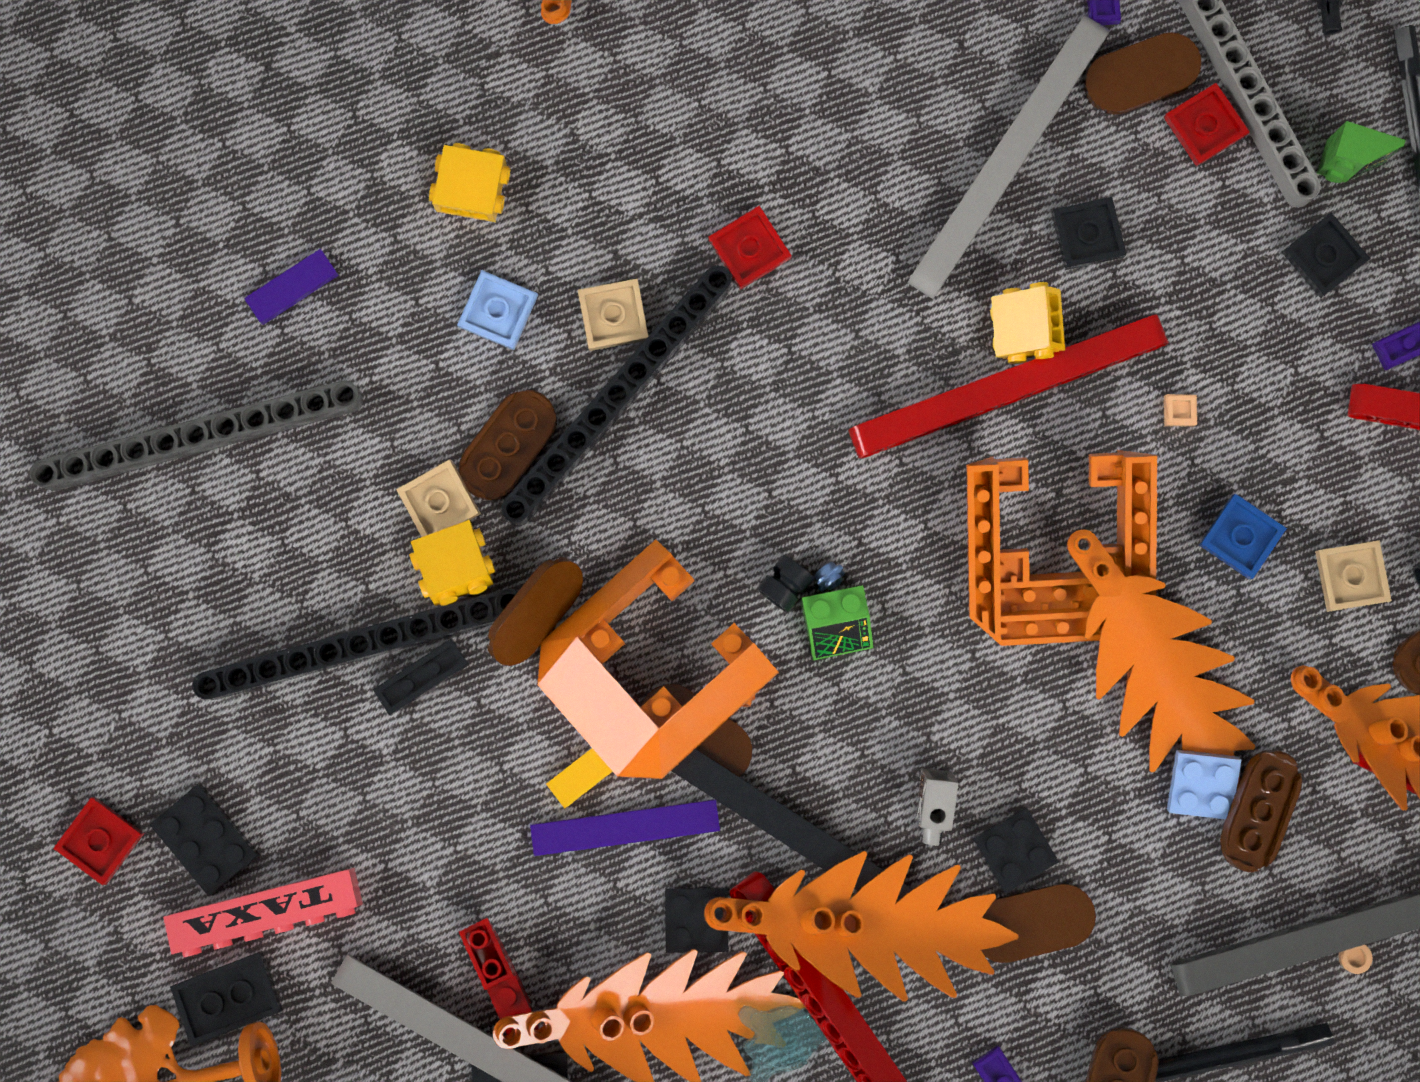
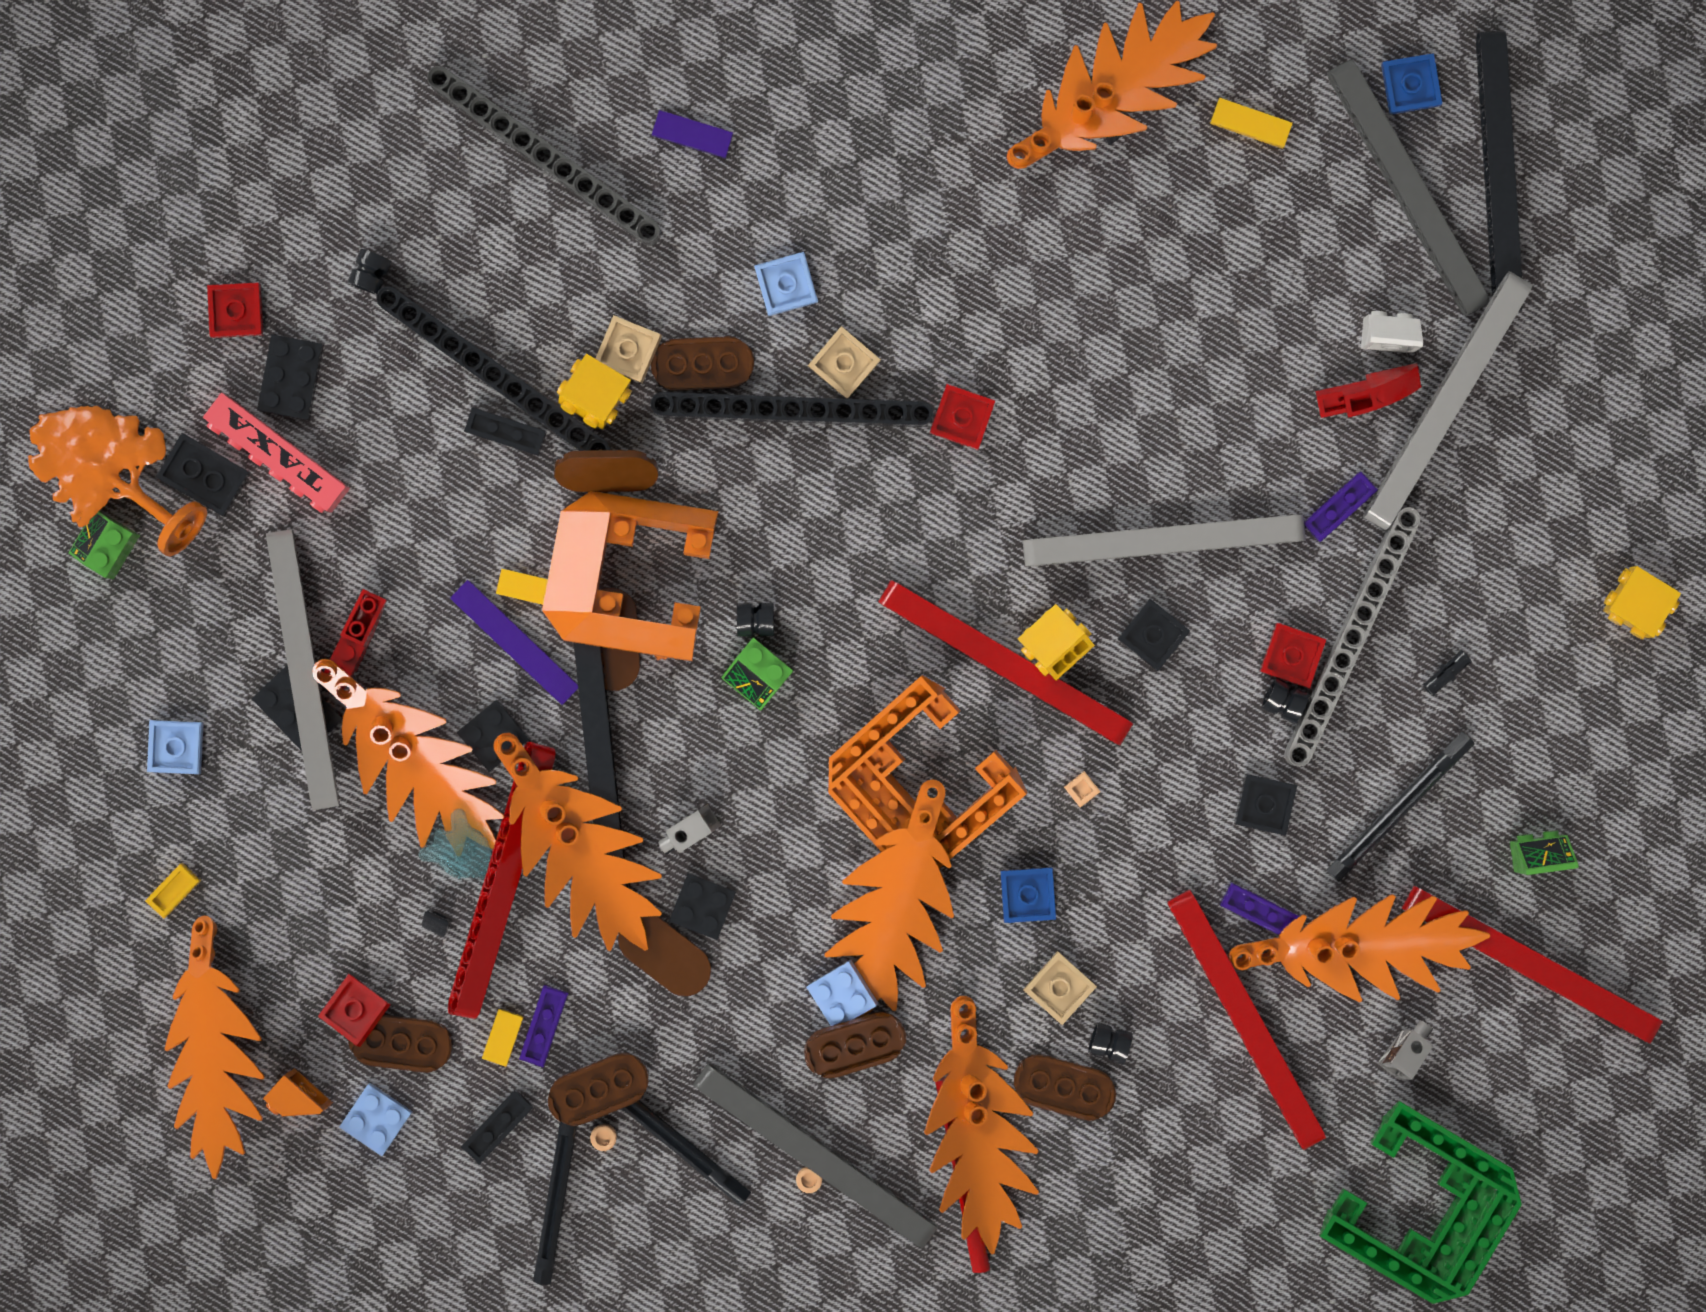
camera: 55 degrees right, 5 degrees up
(168, 683) = (369, 271): none -> black wheel
(469, 182) = (856, 195): yellow brick -> none
(829, 576) = (783, 644): medium blue plate -> none
(1142, 73) = (1295, 585): reddish brown tile -> none
(1240, 164) = (1287, 702): none -> black wheel
(1356, 151) = (1348, 769): bright green slope -> none

